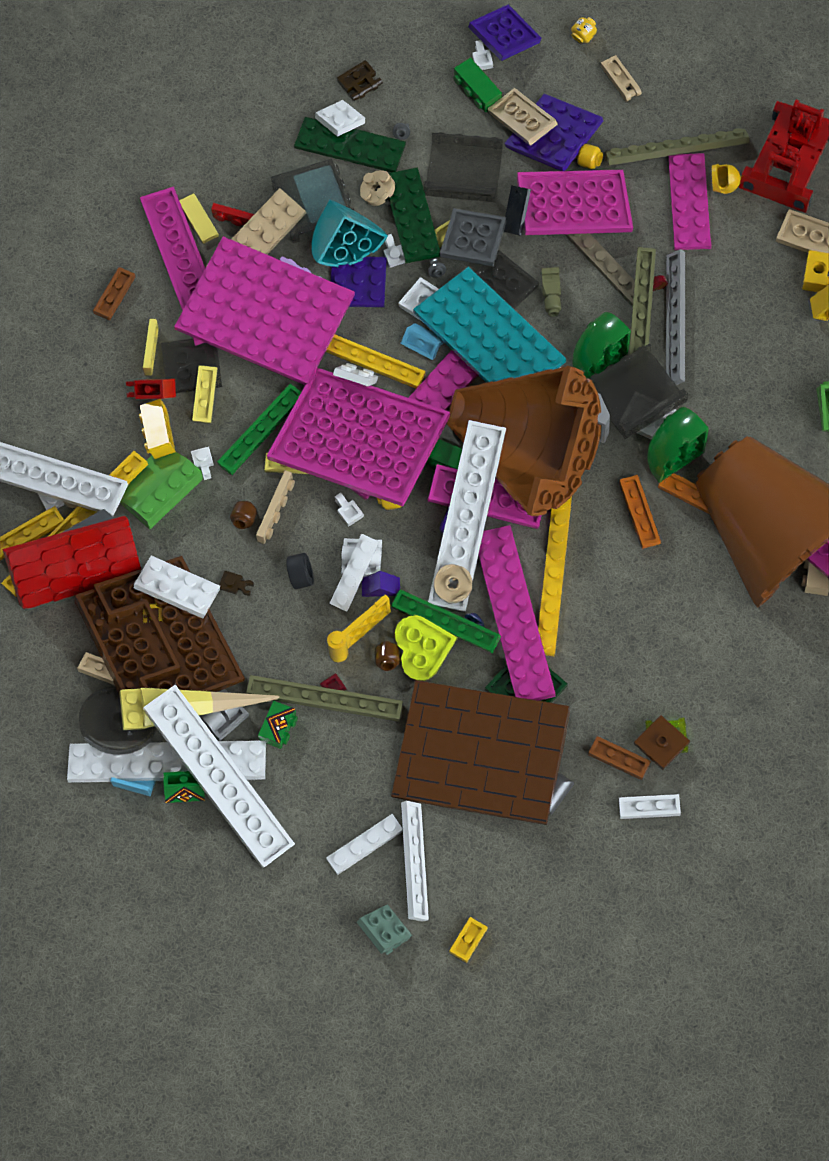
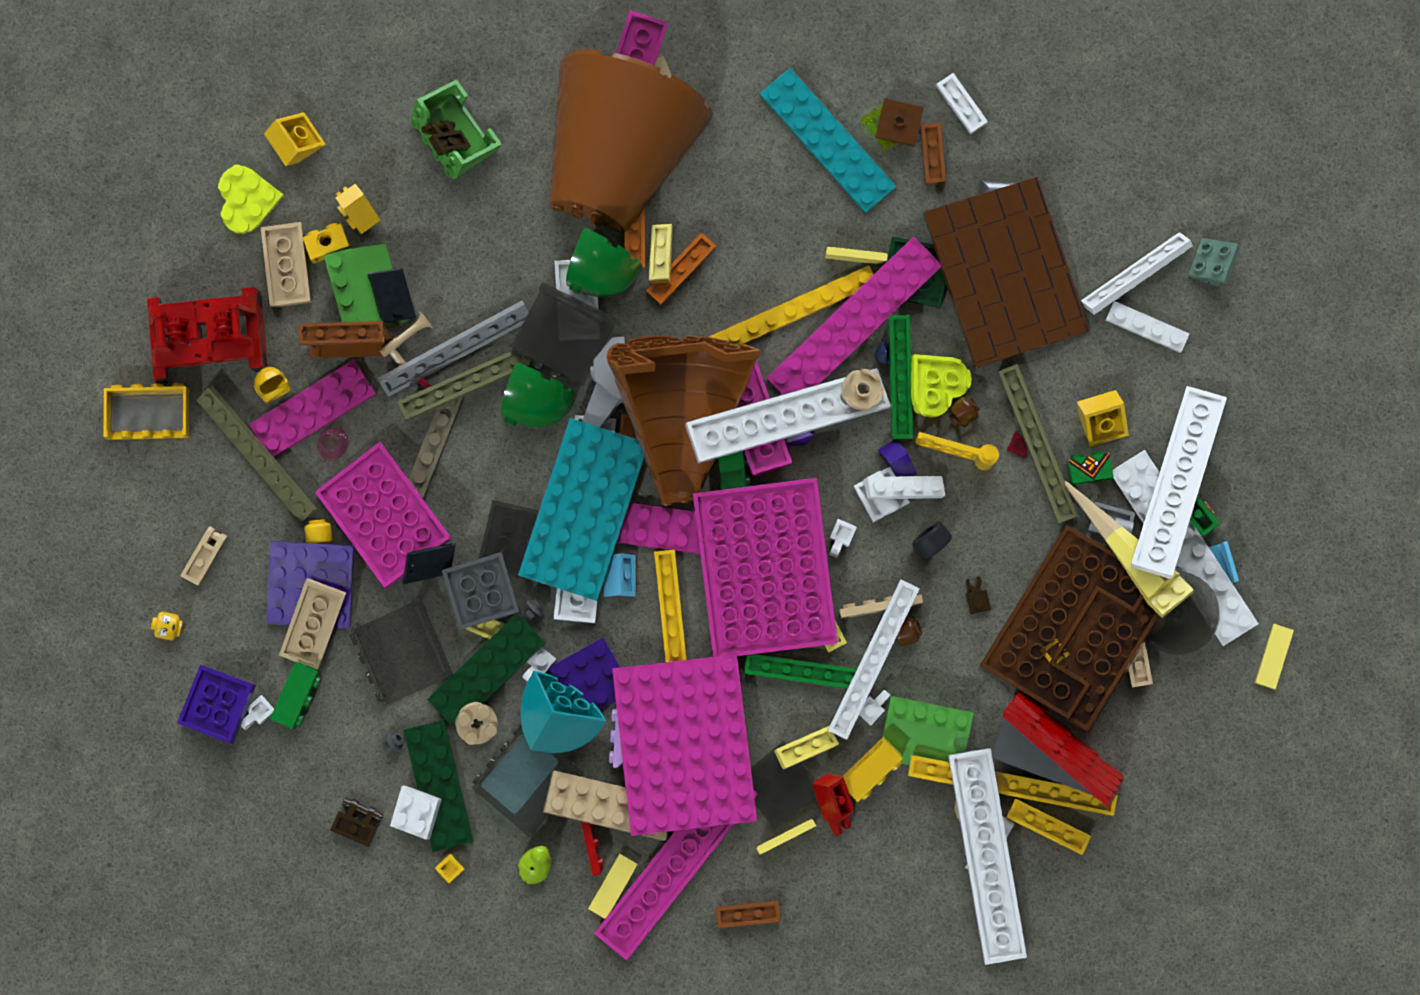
camera: 125 degrees left, 15 degrees up
(35, 780) = (1274, 656): none -> light yellow tile
(176, 587) = (1017, 644): white plate -> none
(237, 474) = (873, 659): none -> white plate
(248, 175) = (540, 860): none -> lime piece
(285, 121) = (449, 868): none -> yellow plate
(312, 760) = (1103, 418): none -> yellow slope
(350, 373) = (701, 612): white plate -> none
(468, 939) = (1176, 187): yellow plate -> none
(551, 290) = (493, 483): olive piece -> none
(568, 646) = (856, 255): none -> light yellow tile
(650, 208) = (341, 448): none -> clear pink piece
(661, 502) = (661, 253): none -> light yellow tile
(681, 683) = (827, 140): none -> teal plate
(711, 306) = (391, 347): none -> tan piece
(726, 232) = (344, 339): none -> dark orange panel
(746, 295) = (392, 295): none -> black container
(756, 91) = (146, 412): none -> clear window
(763, 279) = (351, 283): none -> bright green slope

